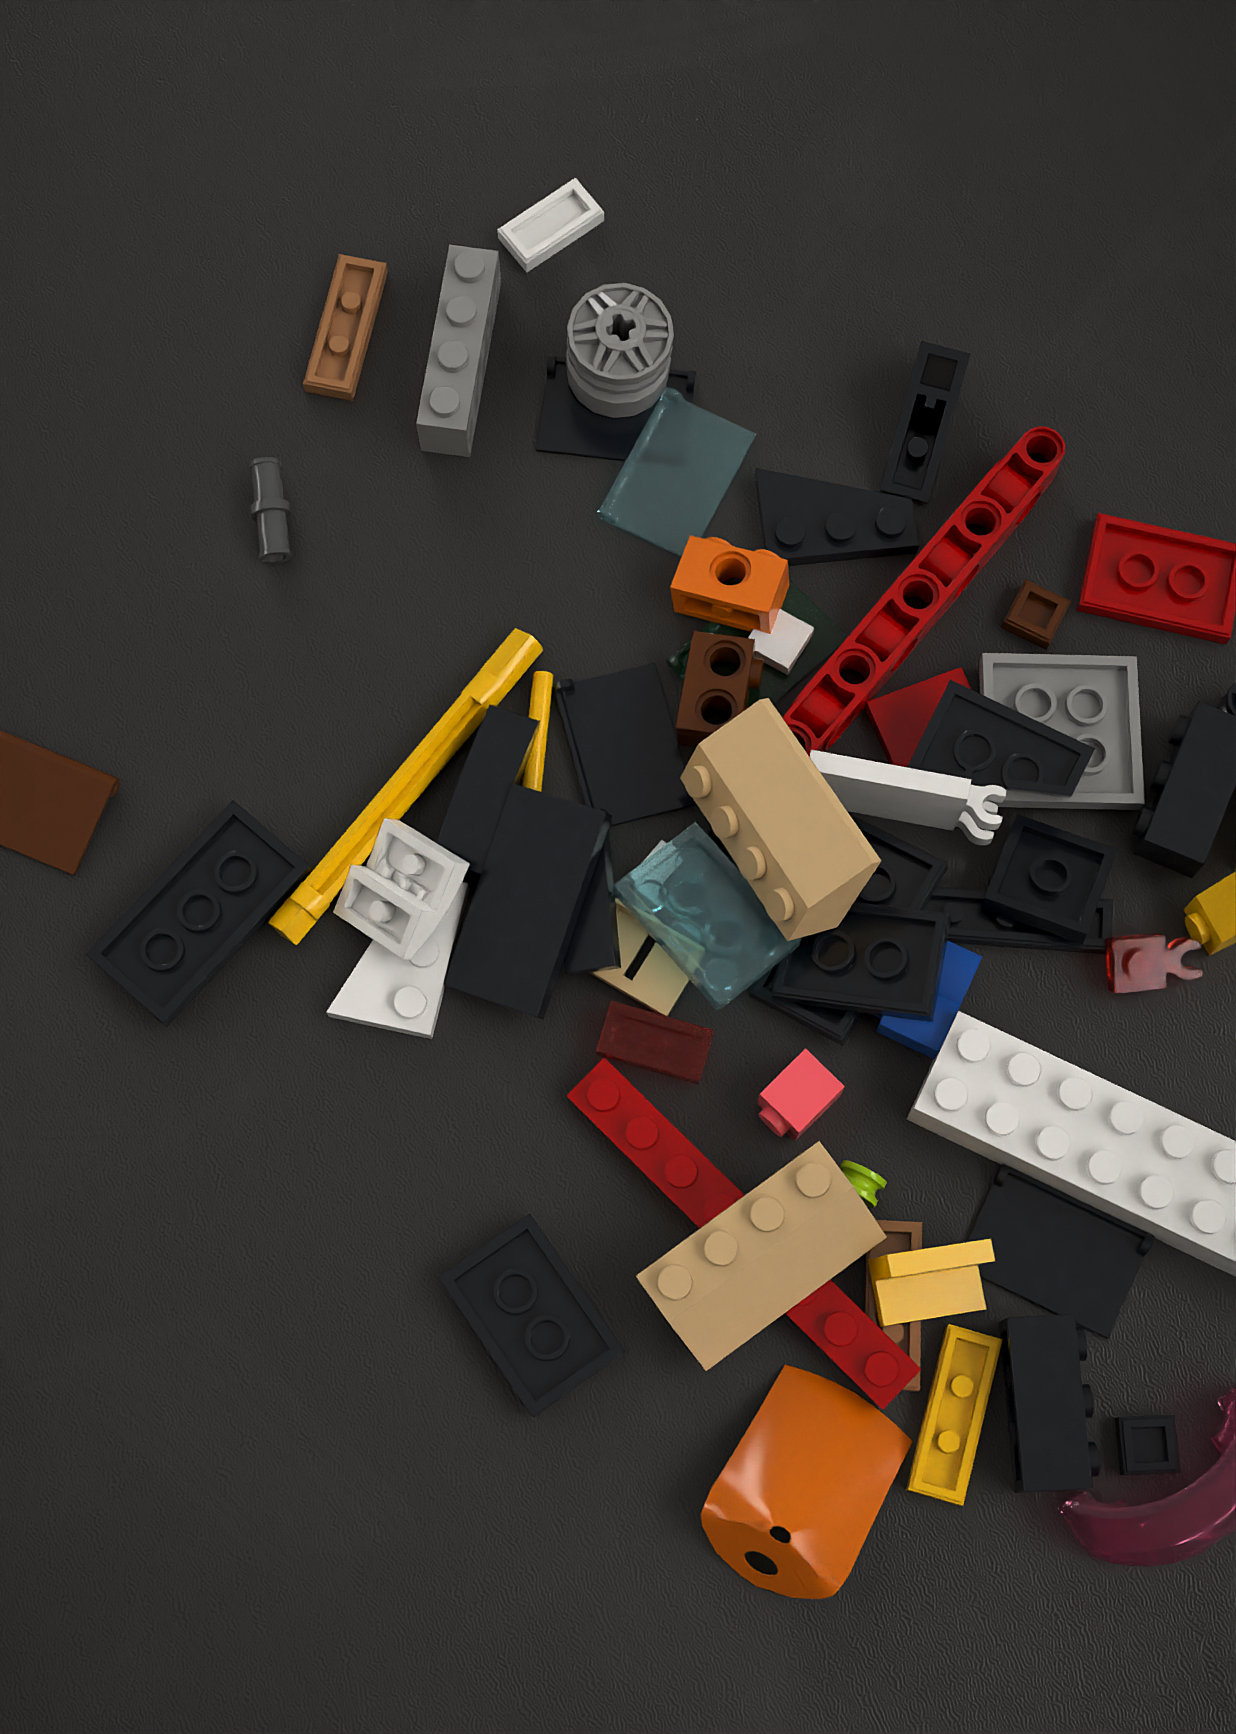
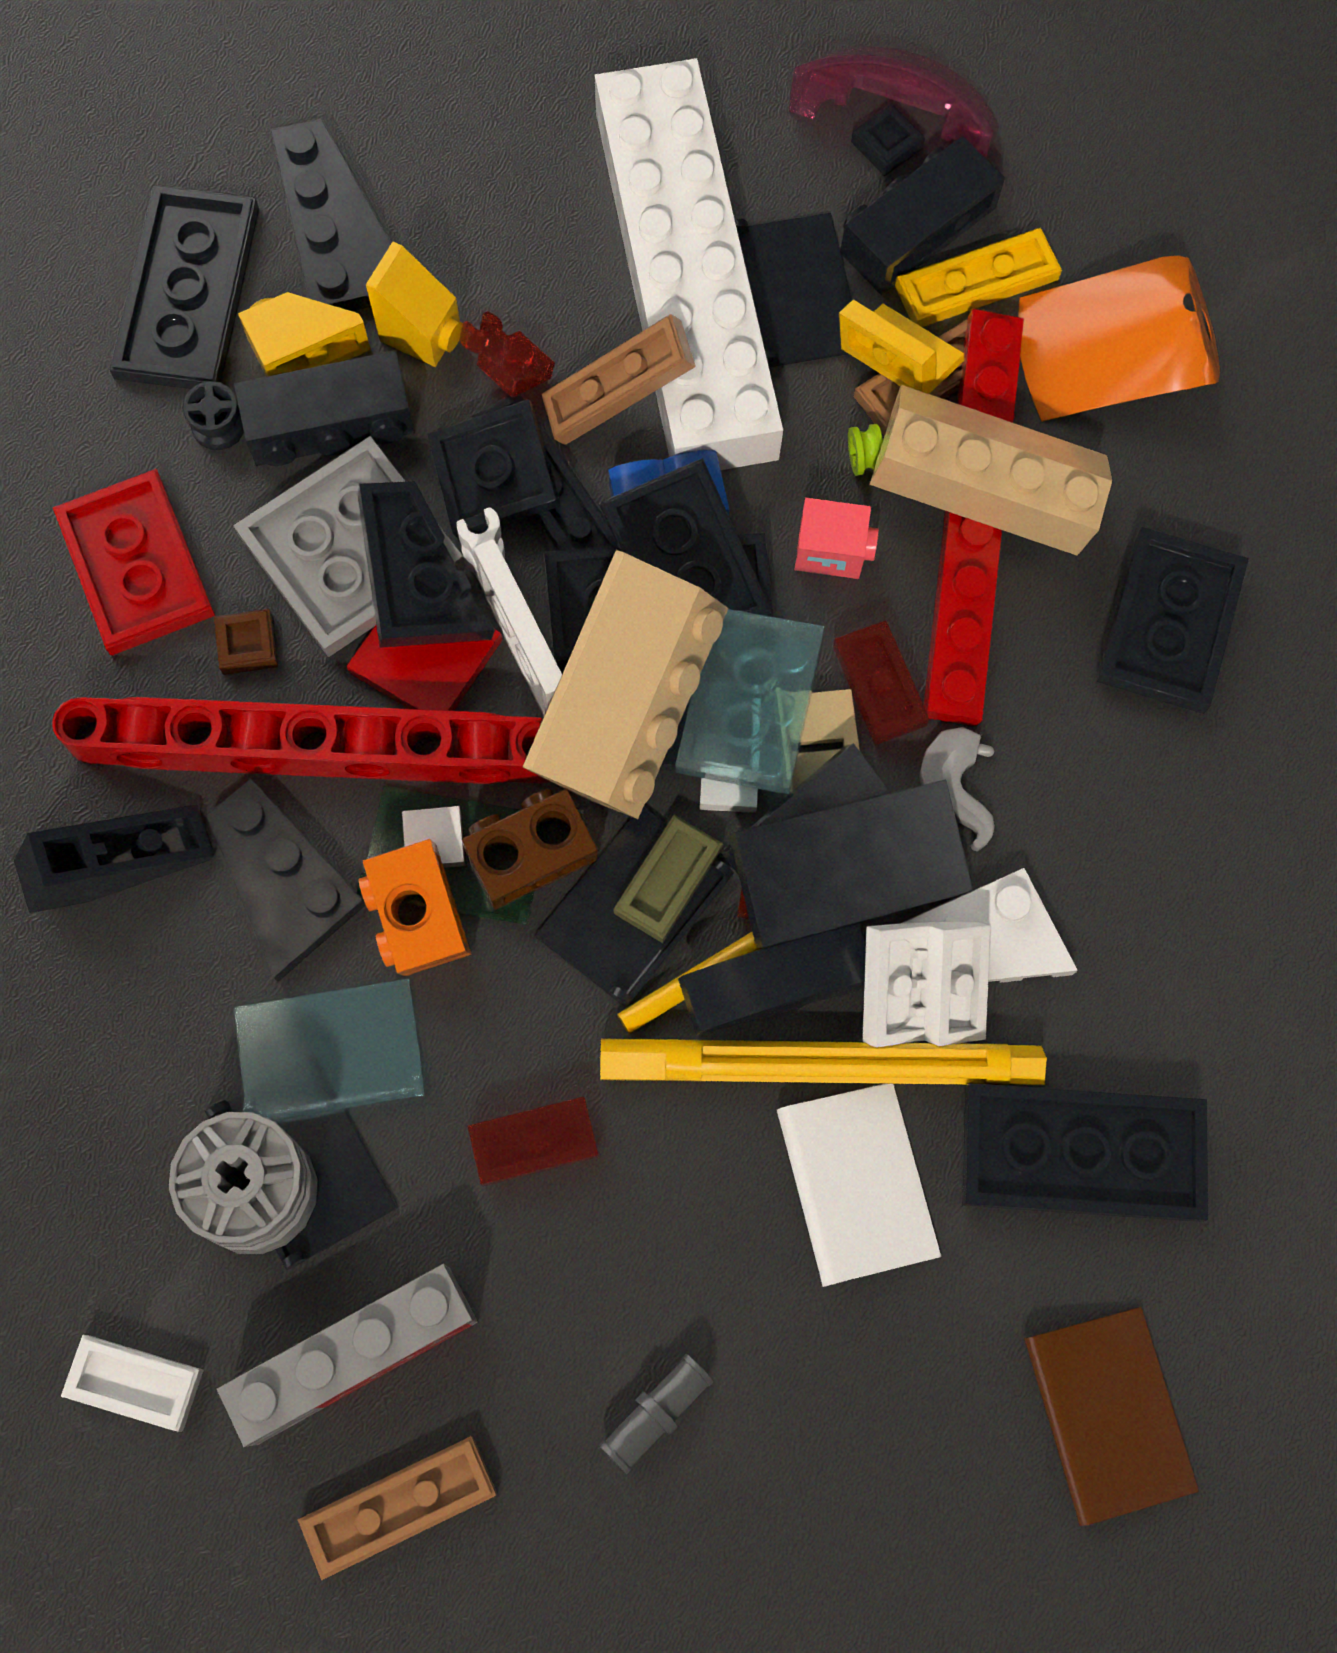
camera: 130 degrees left, 0 degrees up
(308, 750) = (858, 1183): none -> white piece
(507, 556) = (532, 1141): none -> clear red plate
(549, 1036) = (948, 759): none -> light grey piece
(623, 778) = (668, 878): none -> olive tile
(1055, 1017) = (618, 379): none -> medium nougat tile

